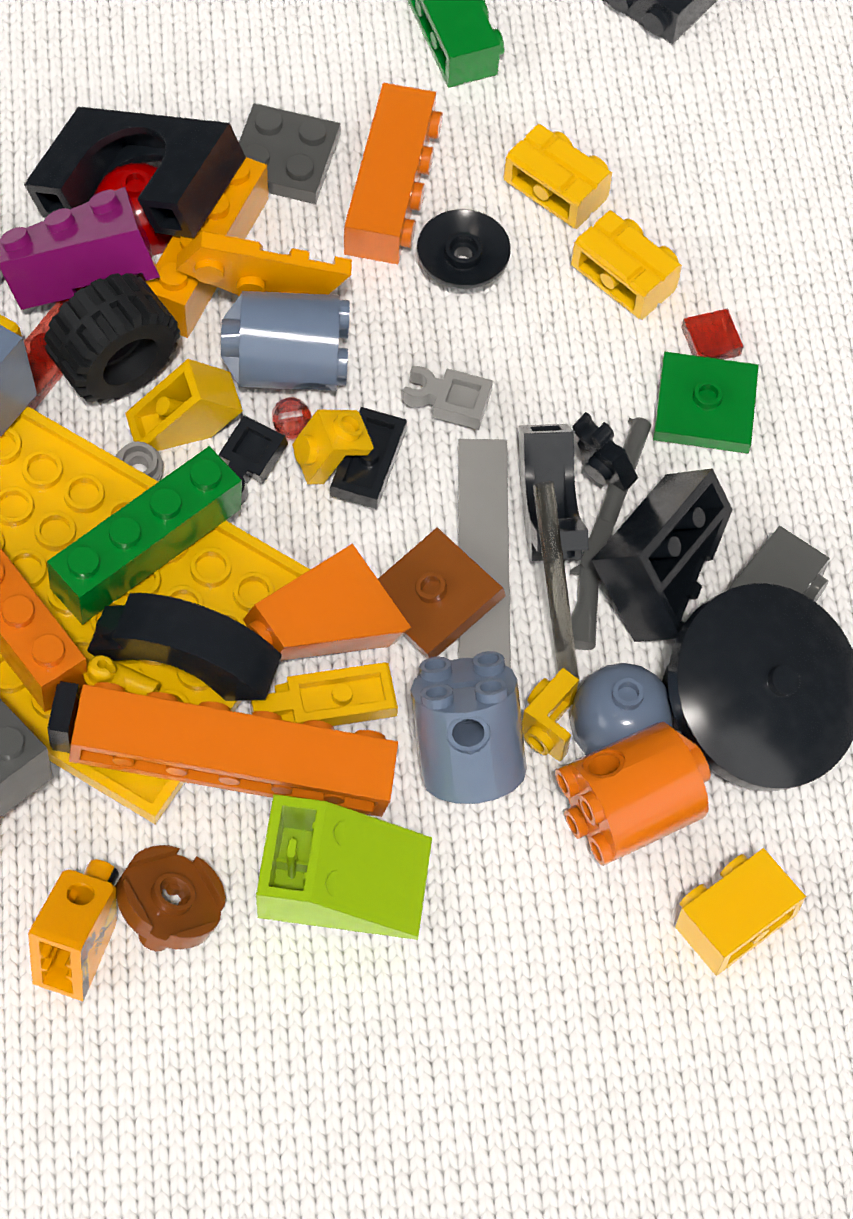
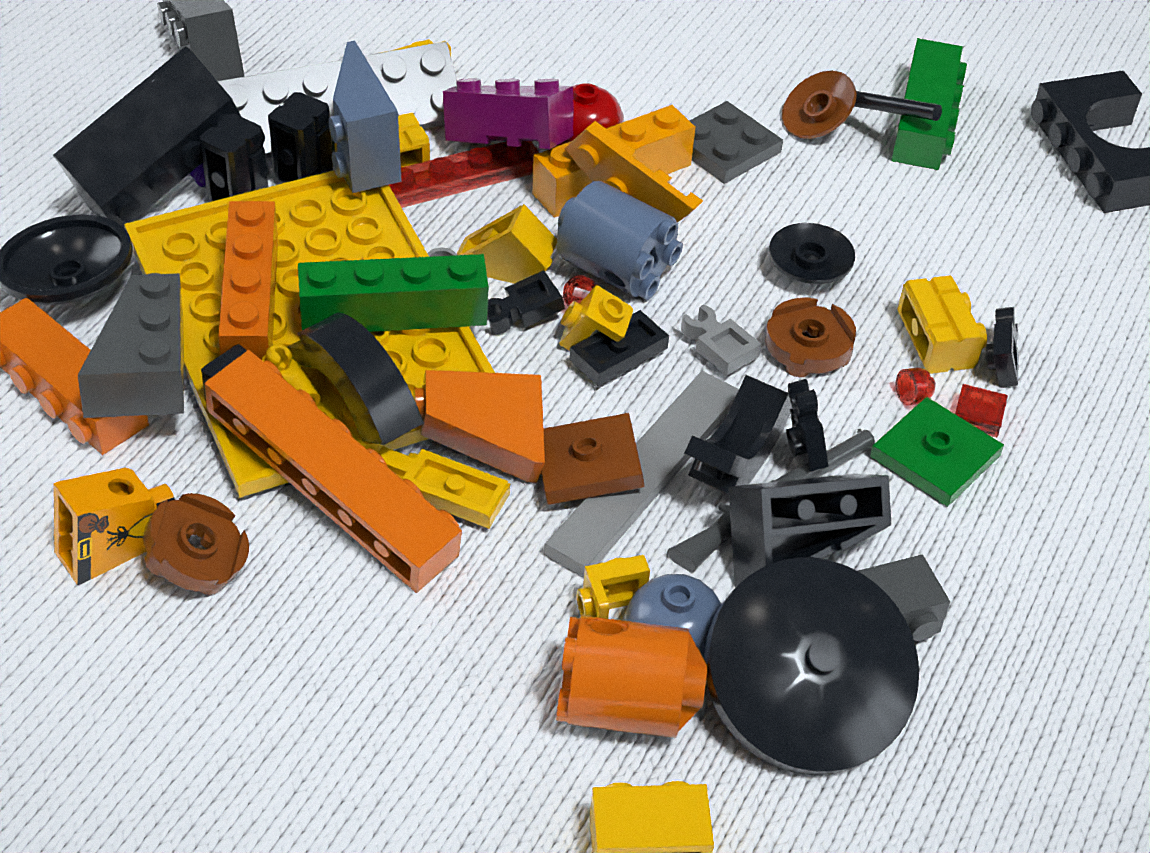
camera: 35 degrees right, 15 degrees down
(111, 337) = (483, 146): black tyre -> none
(193, 173) = (620, 90): black arch -> none
(330, 57) = (819, 104): none -> dark orange dish
(341, 870) = (340, 598): lime slope -> none
(390, 174) = (794, 183): orange brick -> none
(400, 34) = (898, 106): none -> black bar
(468, 728) = (521, 548): sand blue cylinder -> none
(523, 367) = (804, 354): none -> dark orange plate
(555, 576) = (685, 482): clear smoke bar -> none
(558, 175) = (930, 240): yellow brick -> none
(637, 341) = (914, 385): none -> clear red hinge
(697, 266) = (1003, 351): none -> black plate

